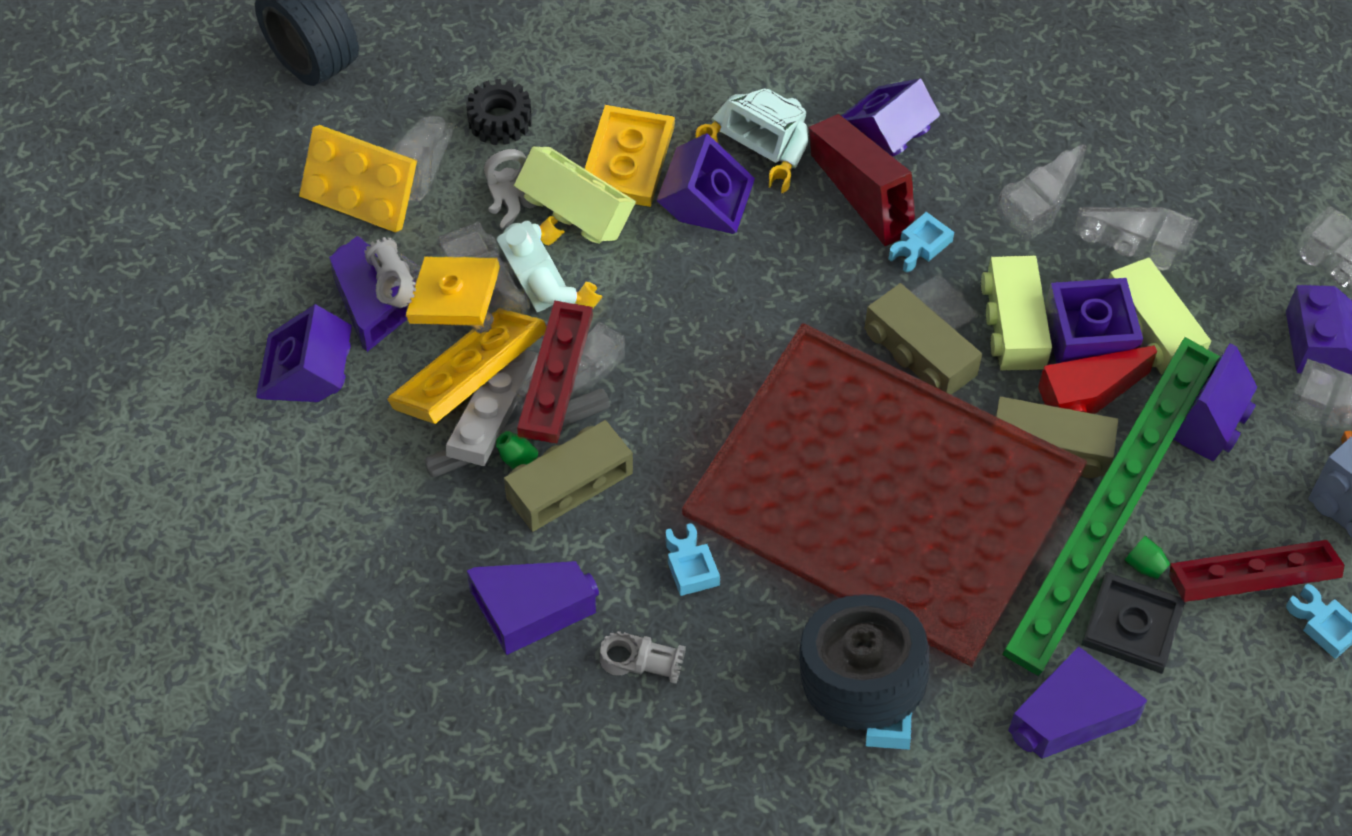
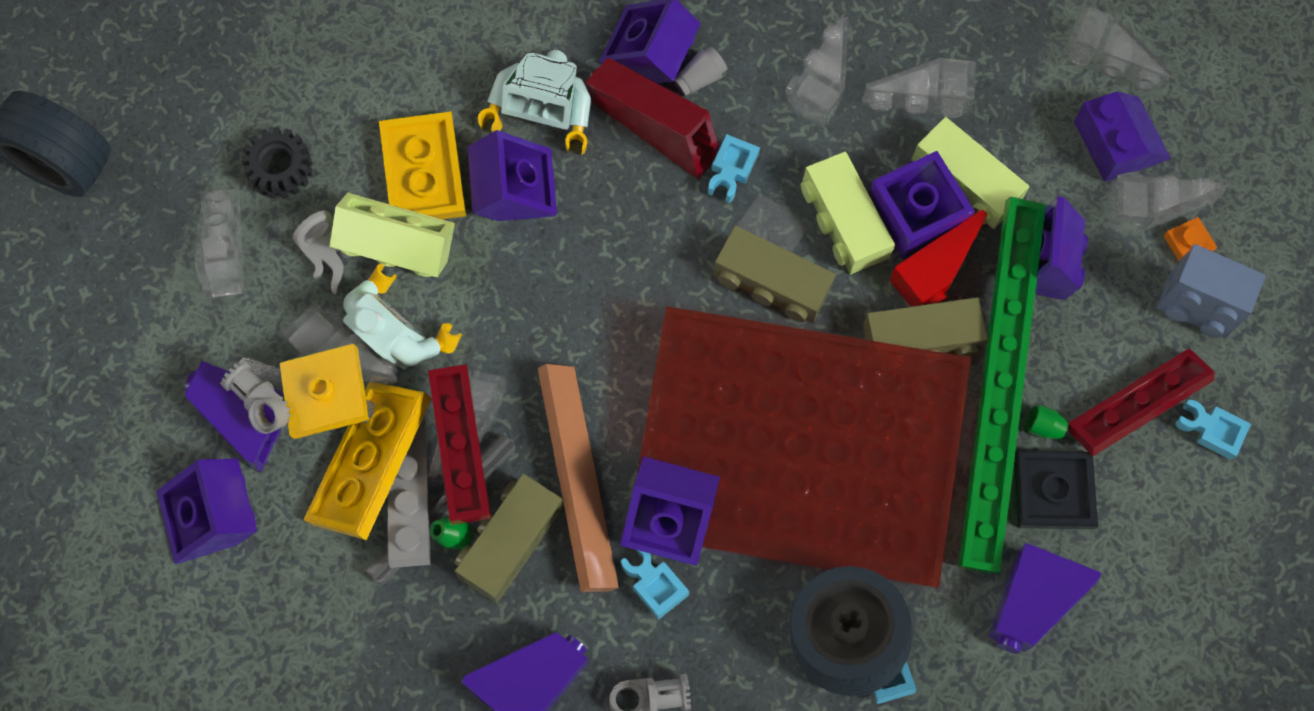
camera: 25 degrees left, 15 degrees up
(357, 178) = (172, 294): yellow plate -> none
(655, 450) = (577, 479): none -> nougat tile
(729, 495) = (669, 511): none -> dark purple slope
(926, 155) = (700, 71): none -> light grey cone

